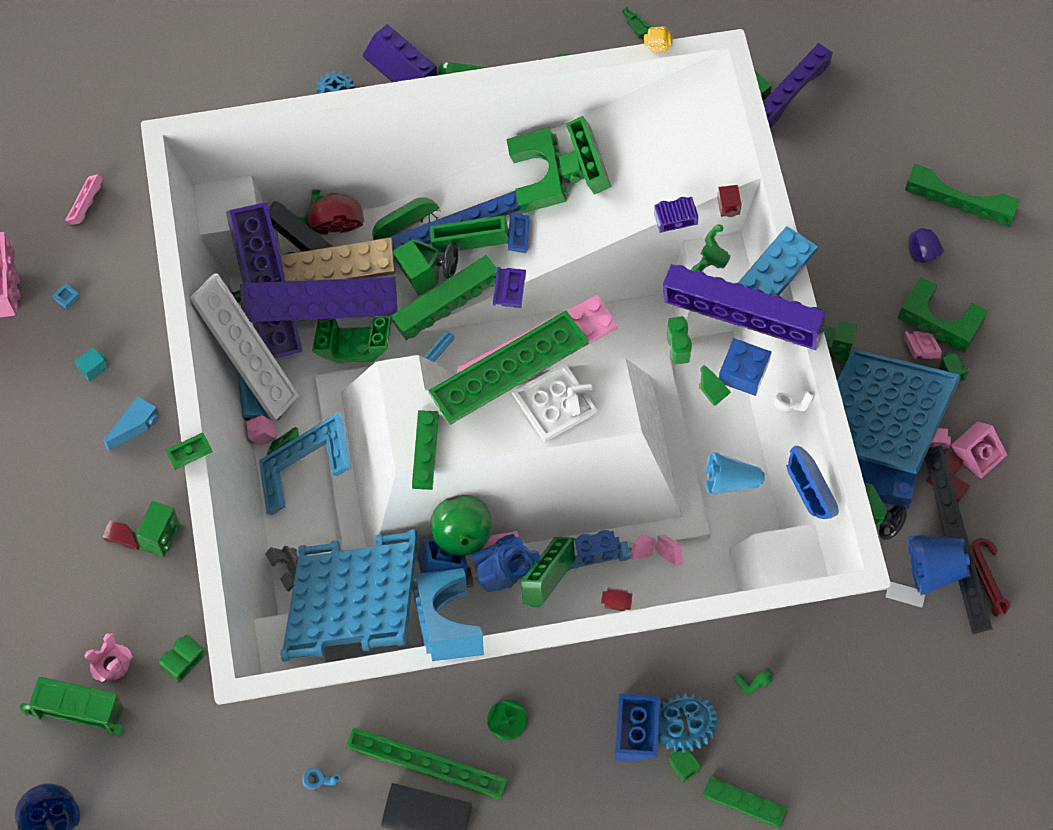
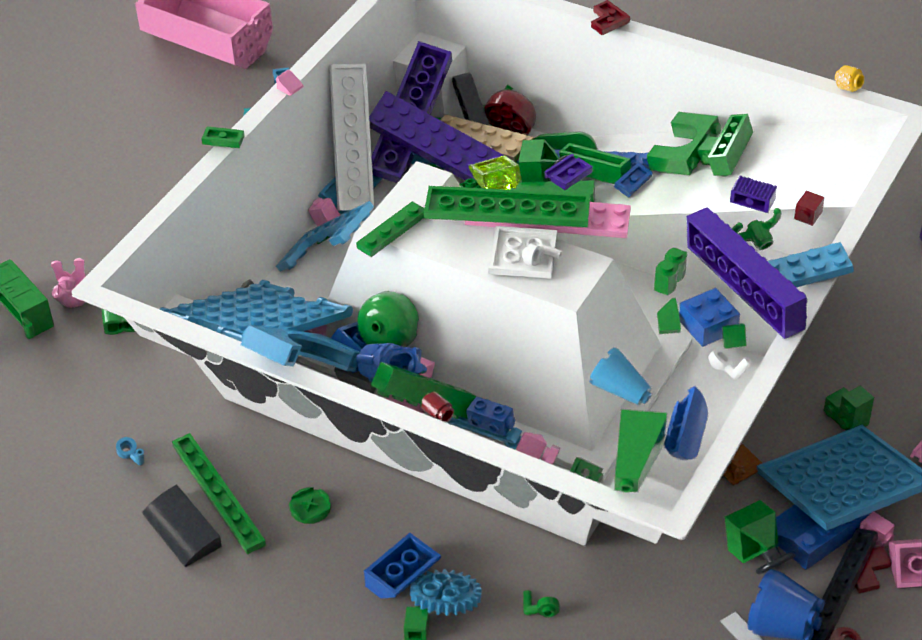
camera: 40 degrees right, 20 degrees down
(188, 350) = (288, 83): none -> bright pink slope
(404, 87) = (609, 17): none -> dark red plate
(454, 330) = (496, 173): none -> clear neon green slope
(696, 538) = (581, 464): none -> green brick
(776, 372) = (734, 336): none -> green tile
(800, 534) = (638, 447): none -> green slope

